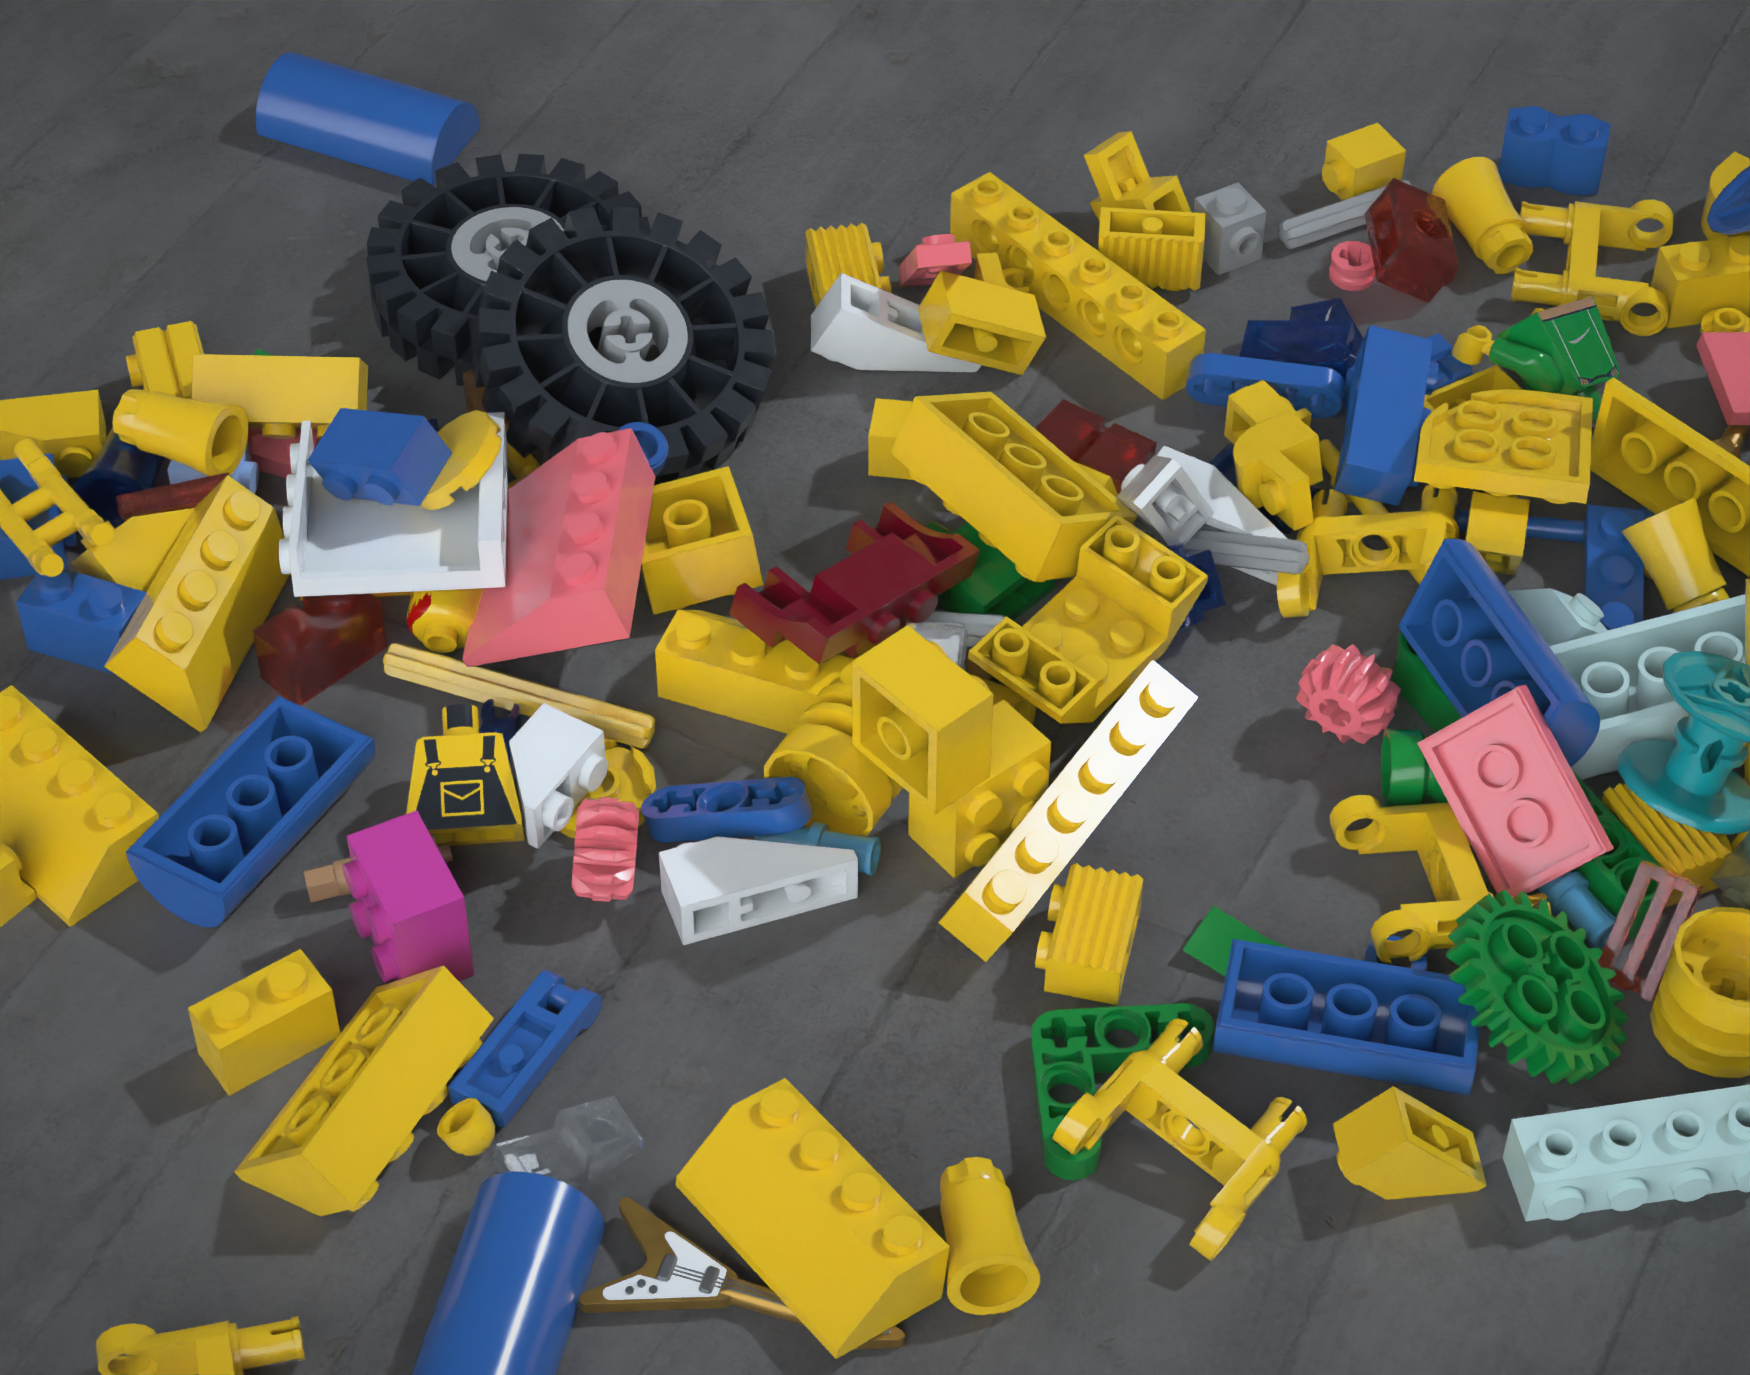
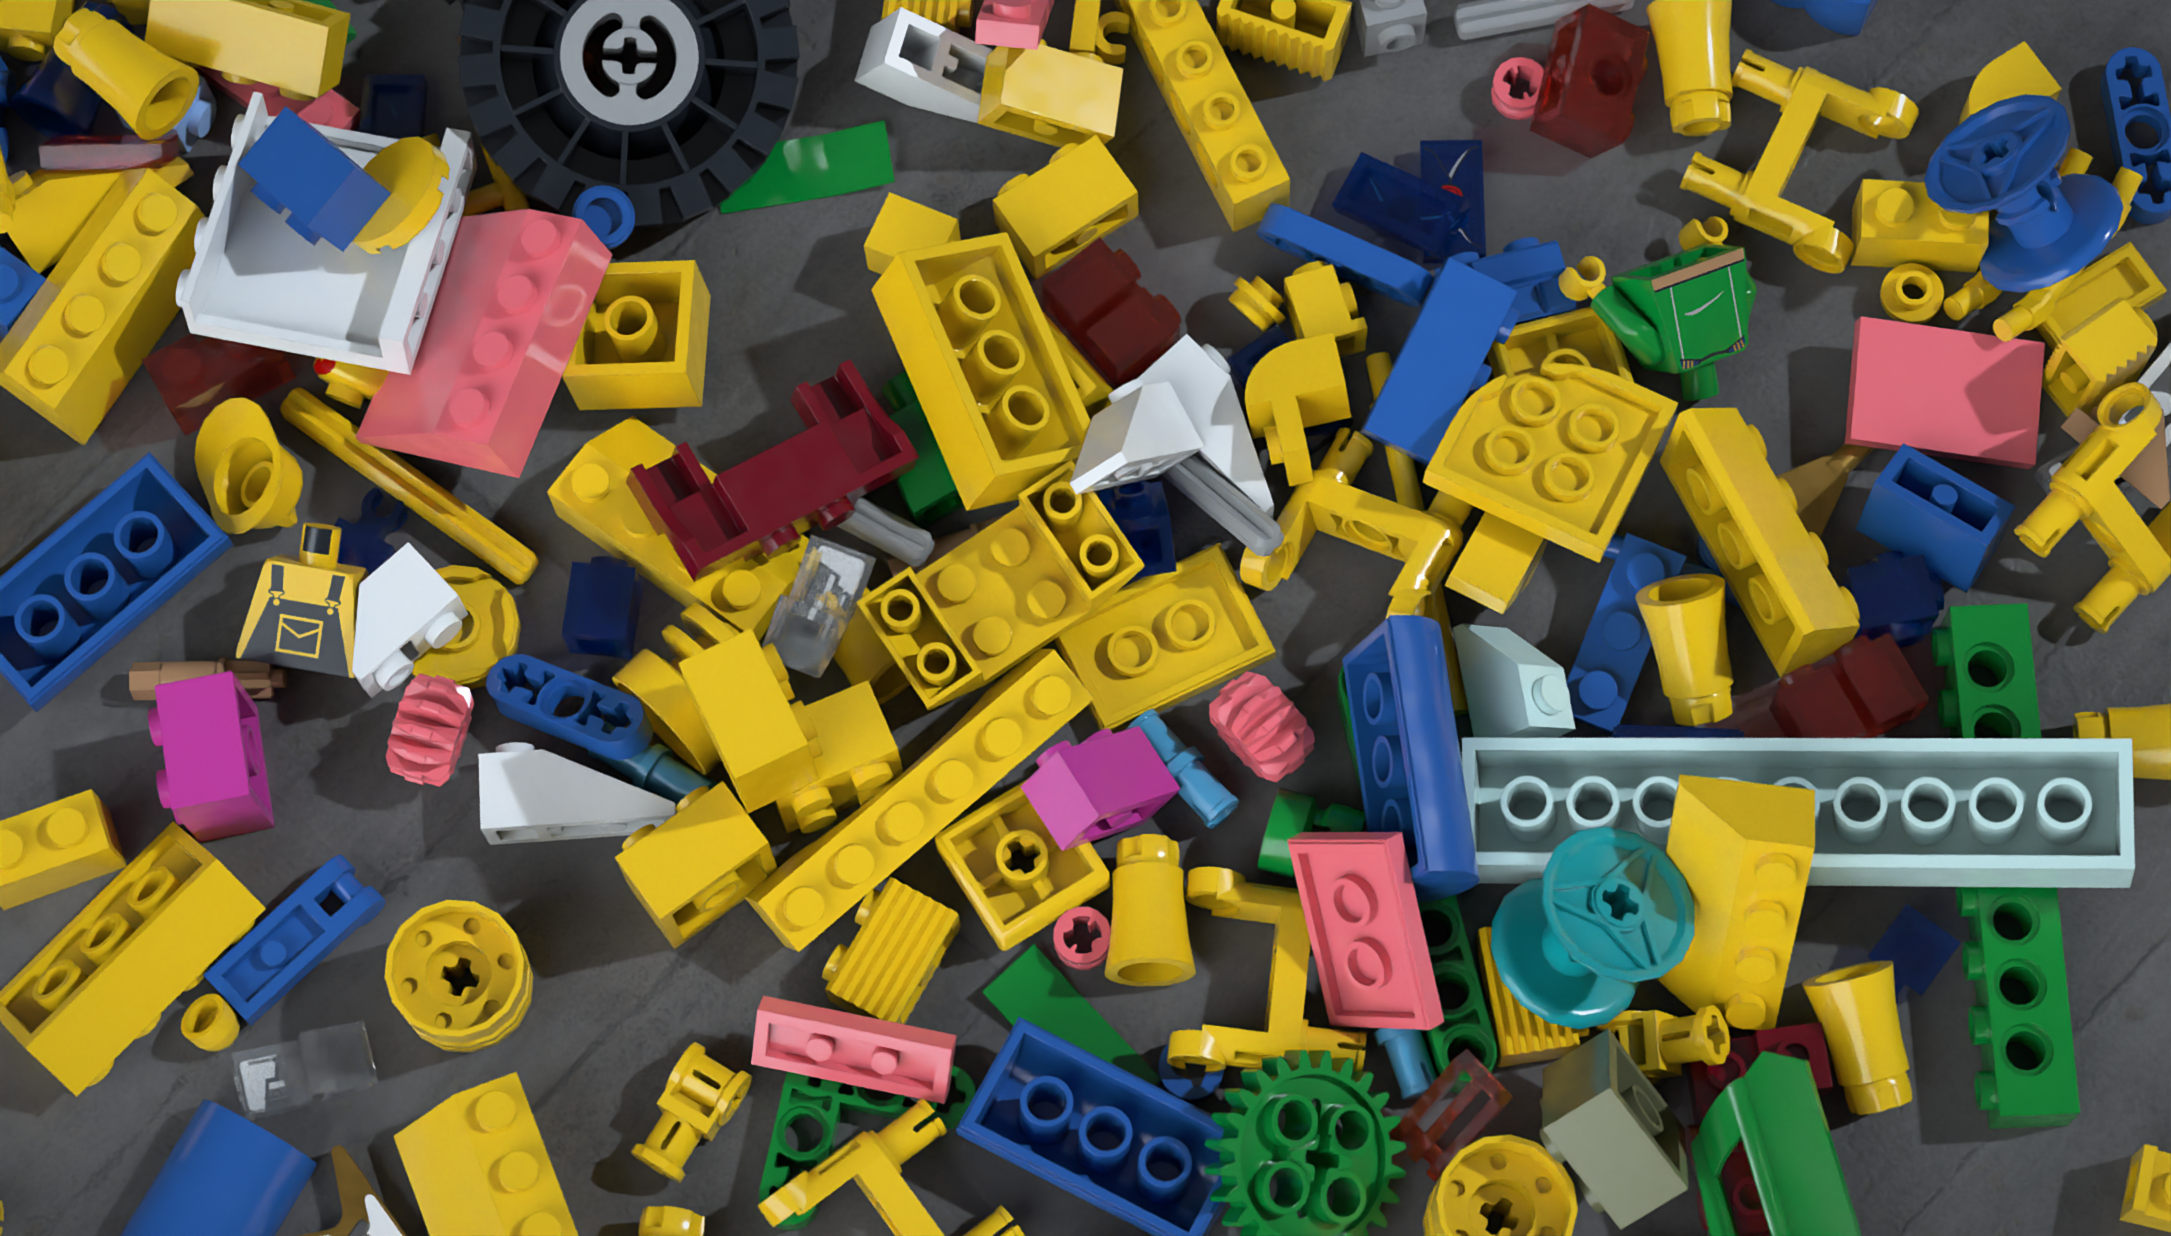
camera: 20 degrees right, 25 degrees up
(371, 695) = (246, 470): none -> yellow piece
(701, 1022) = (441, 944): none -> yellow wheel
(729, 737) = (602, 608): none -> clear blue brick
(799, 422) = (818, 168): none -> green sticker
(892, 889) = (696, 862): none -> yellow brick
(954, 1094) = (691, 1111): none -> yellow connector
(1032, 380) = (1065, 205): none -> yellow brick
(1092, 996) = (853, 1049): none -> coral plate
(1181, 837) = (1015, 902): none -> yellow brick
(1207, 429) = (1257, 302): none -> yellow plate
(1229, 758) = (1099, 786): none -> dark pink brick
(1236, 667) = (1166, 640): none -> yellow tile
(1257, 875) = (1065, 929): none -> coral bush
(1288, 749) = (1197, 784): none -> dark azure pin
(1314, 860) = (1148, 915): none -> yellow plant

